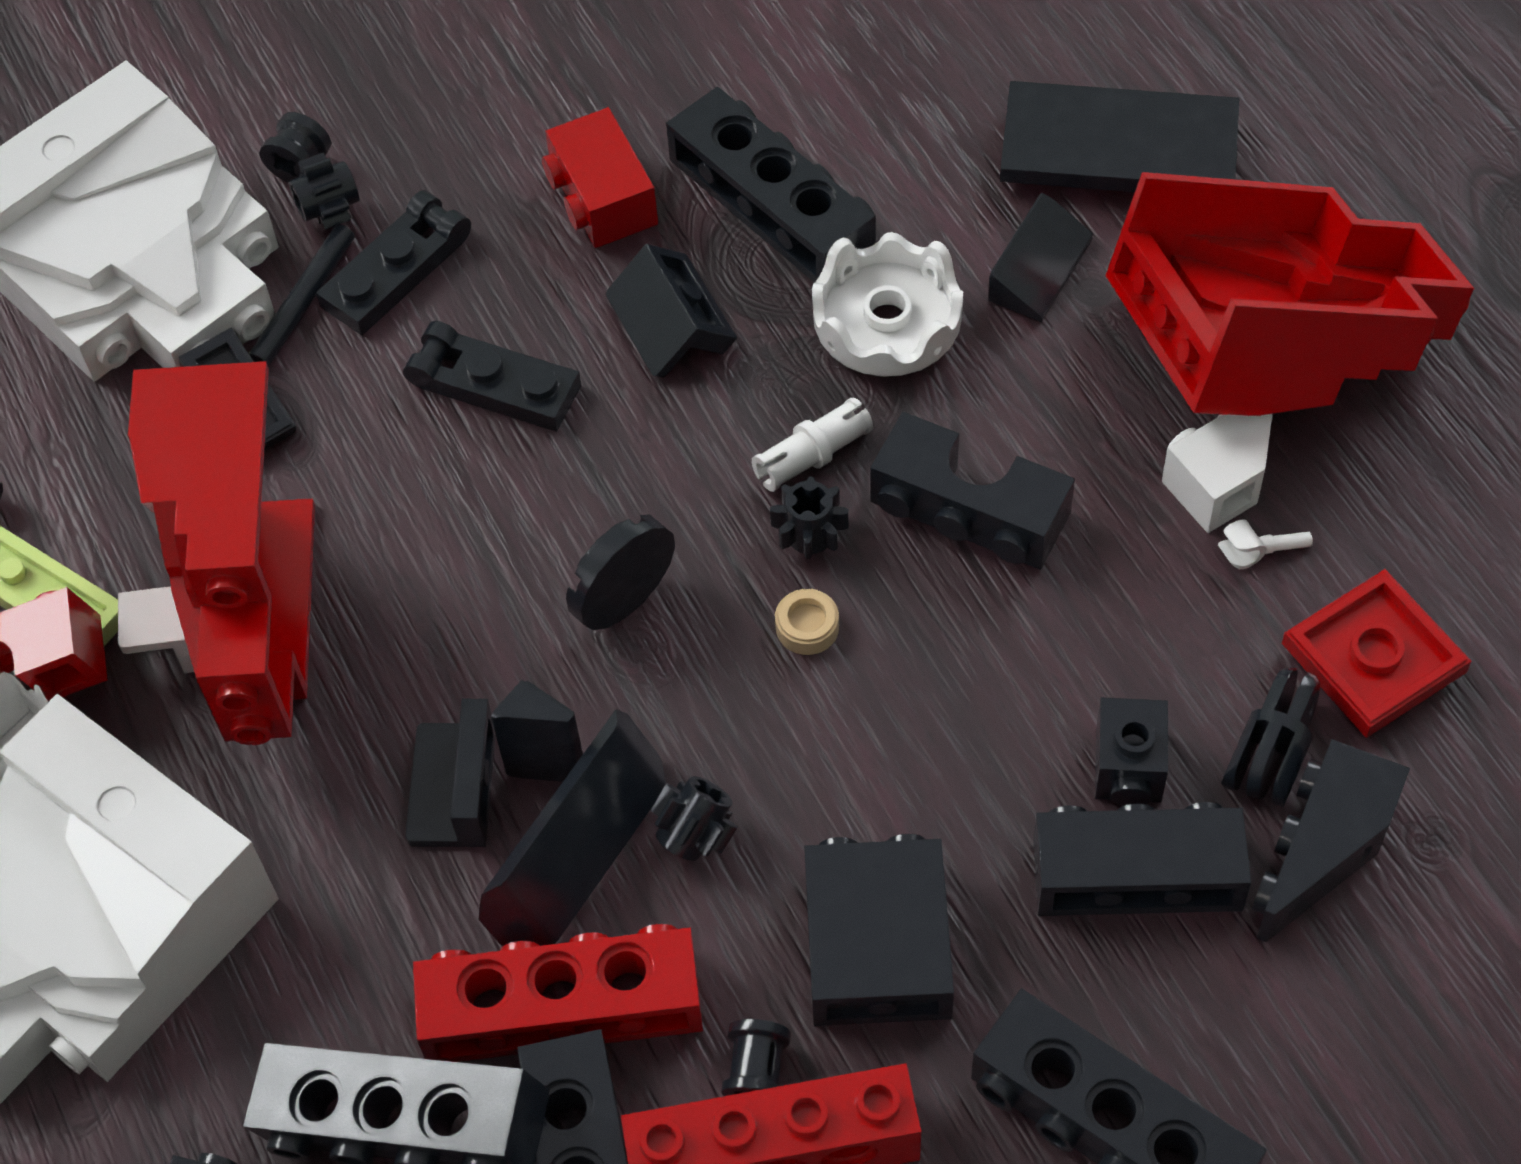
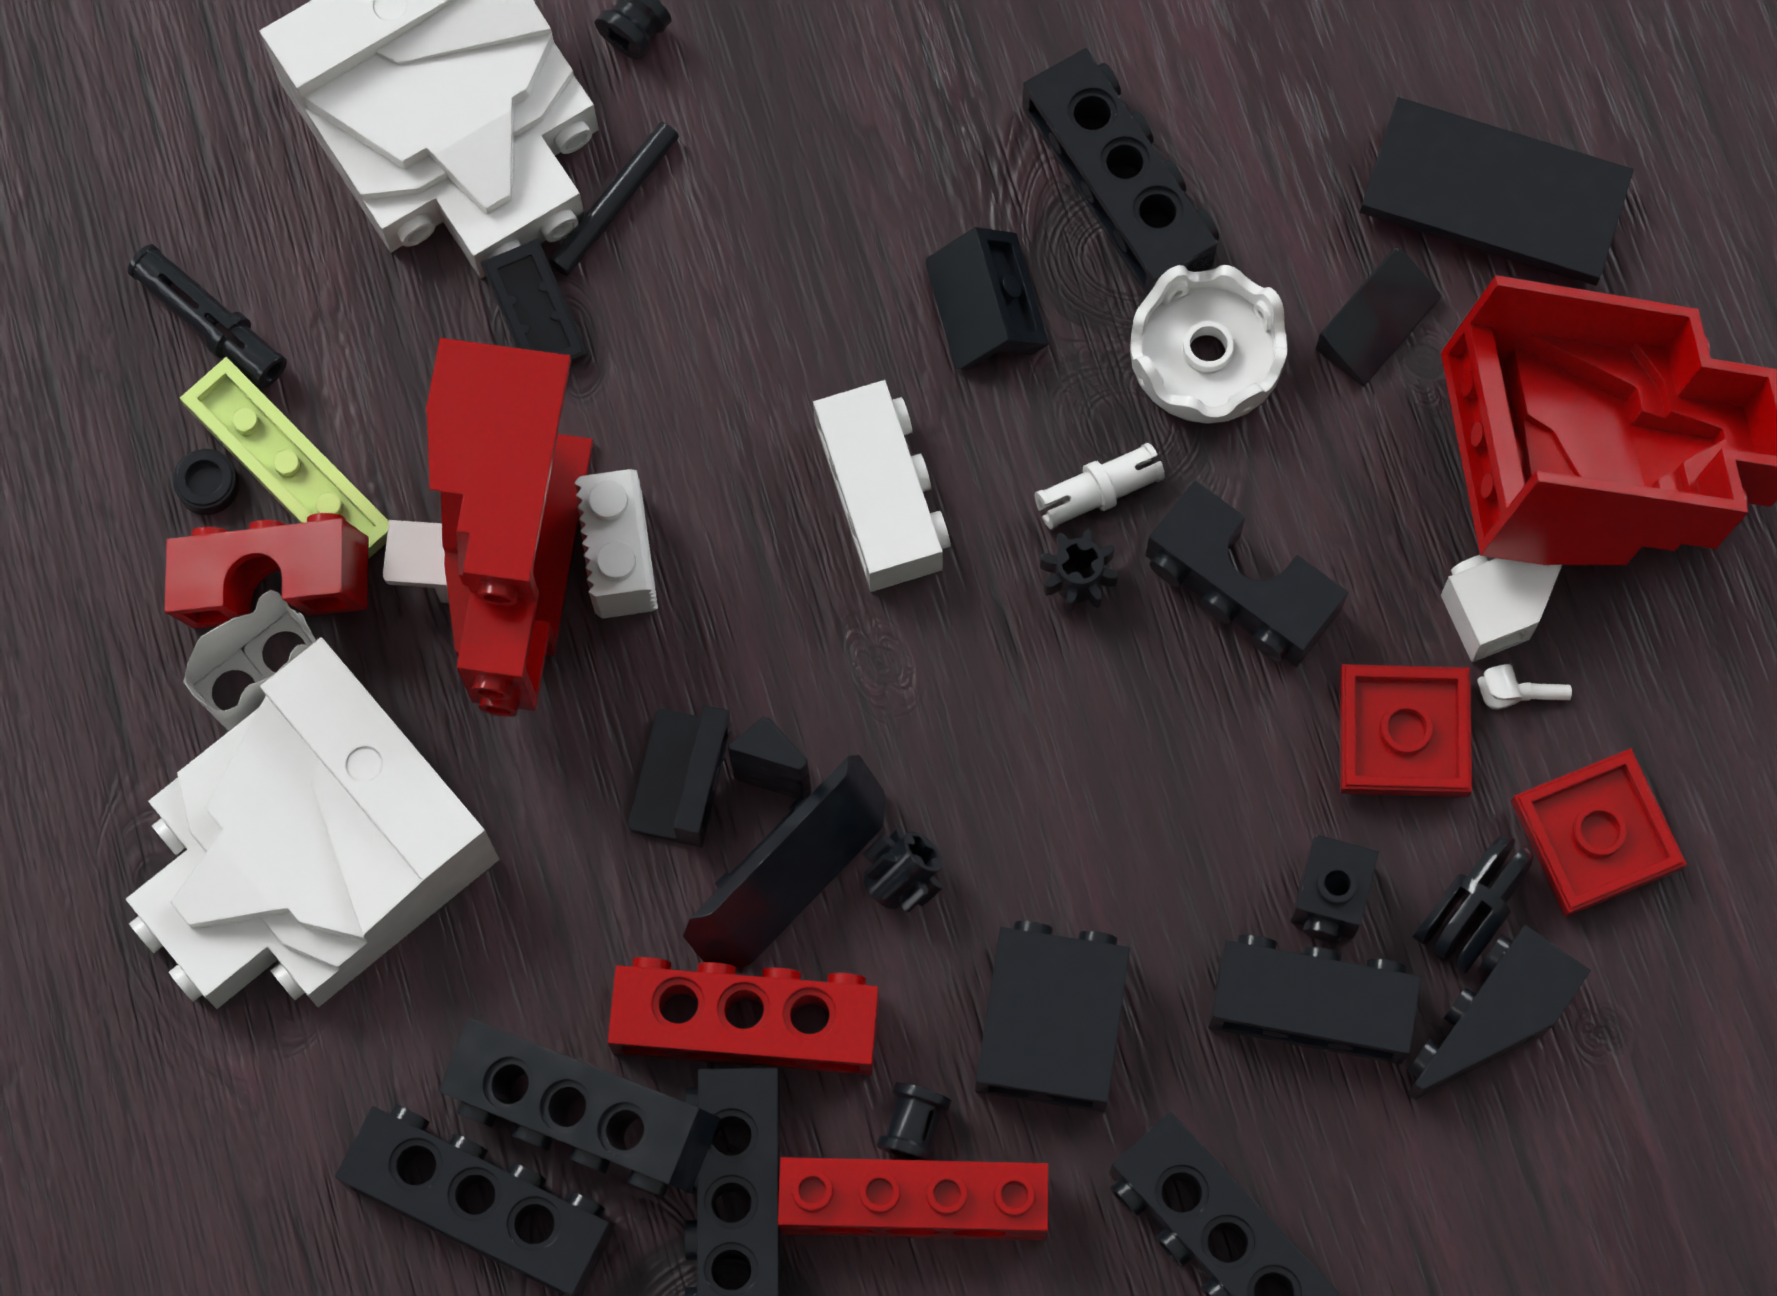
camera: 10 degrees right, 15 degrees up
(324, 191) = (655, 84): black gear -> none
(350, 578) = (616, 543): none -> white brick
(394, 263) = (714, 179): black plate -> none
(493, 377) = (792, 335): black plate -> none
(591, 466) = (881, 485): none -> white brick
(601, 178) = (944, 125): red brick -> none
(620, 572) = (880, 600): black tile -> none
(807, 621) = (1054, 678): tan tile -> none
(1162, 599) = (1405, 730): none -> red plate

